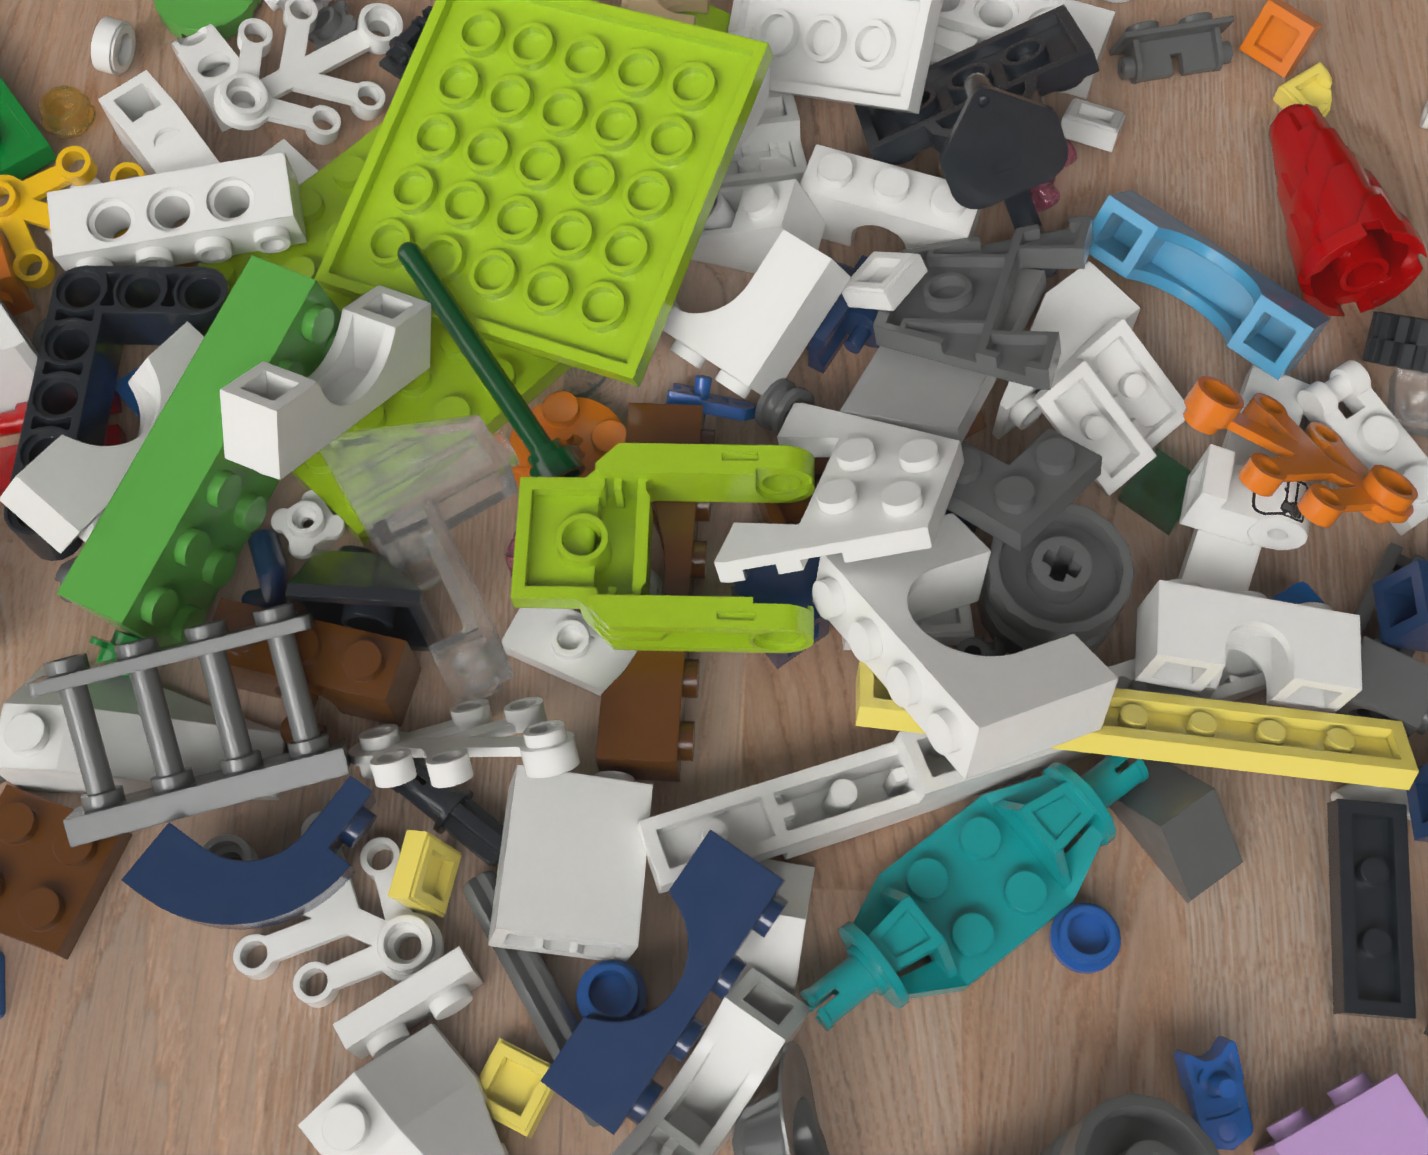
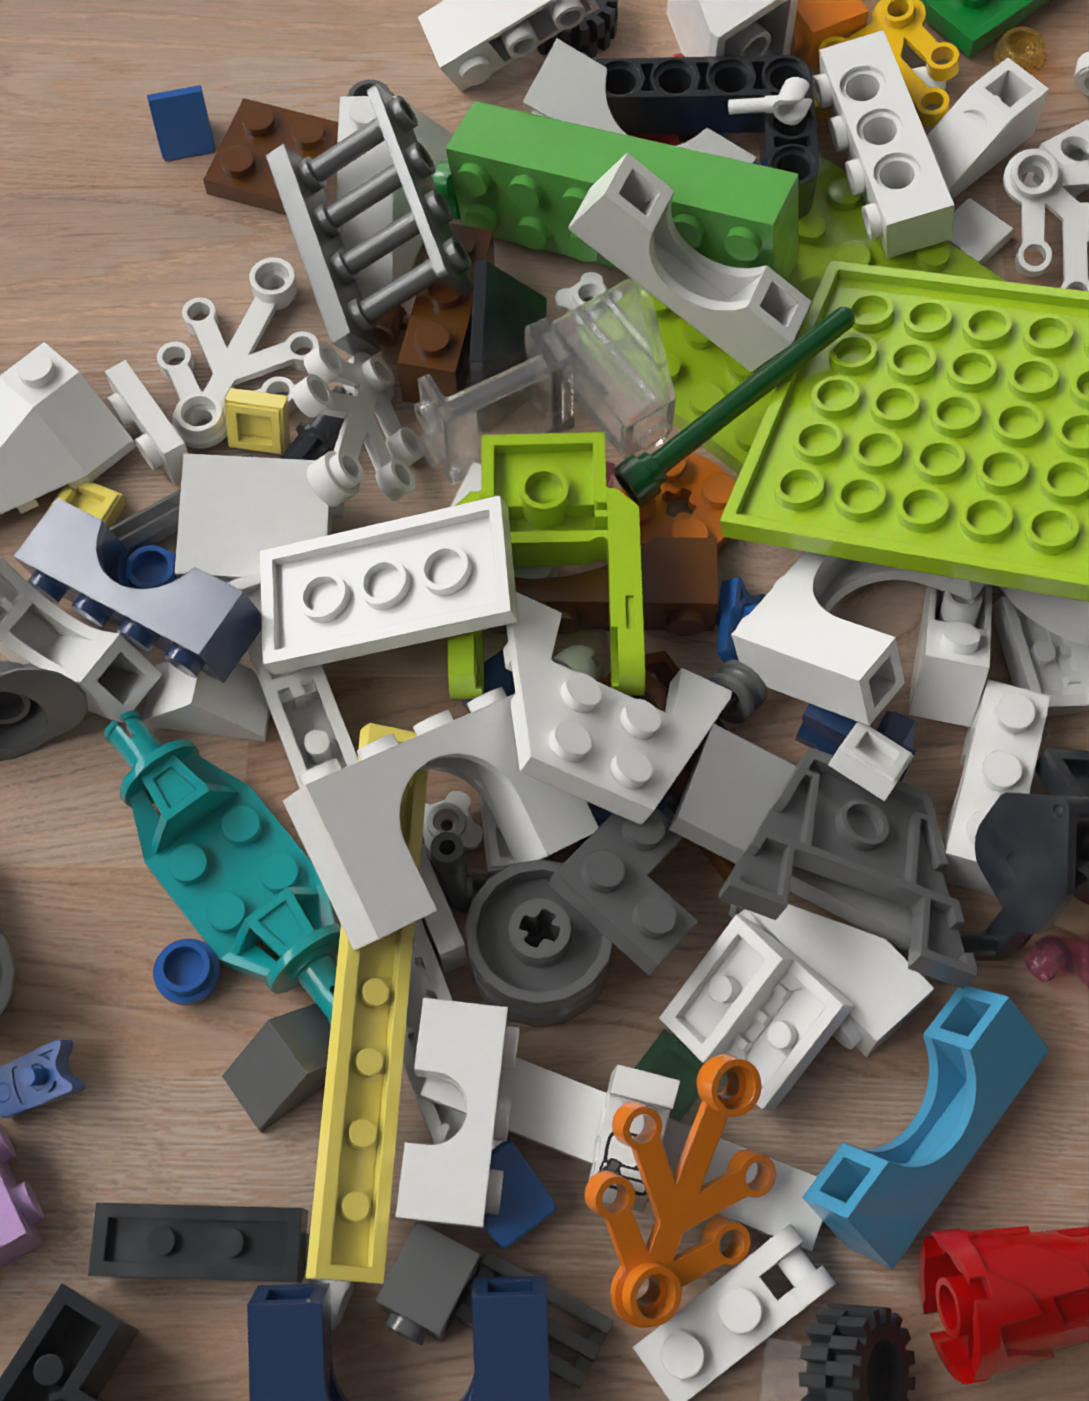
camera: 85 degrees right, 0 degrees up
(129, 284) = (788, 106): none -> white hand
(261, 892) = (234, 267): dark blue arch -> none
(270, 570) = (546, 275): dark blue arm -> none
(701, 687) = (387, 586): none -> white plate

